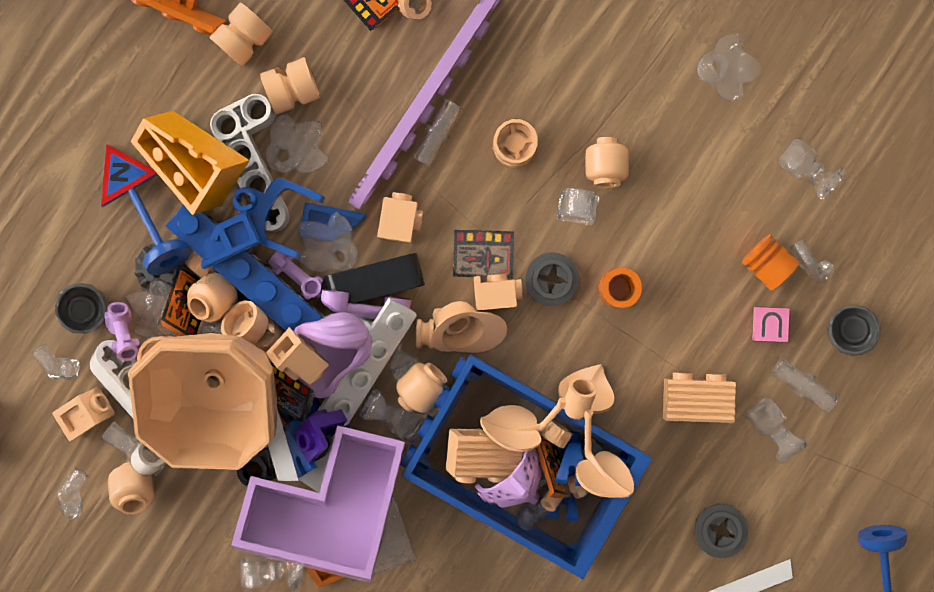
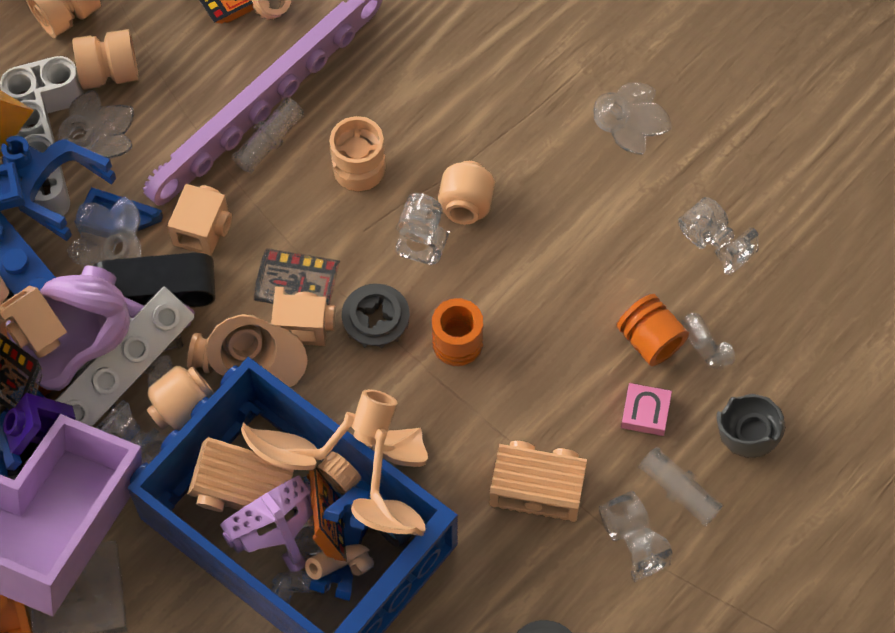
camera: 10 degrees right, 25 degrees down
(310, 286) = (48, 248): lavender bar -> none

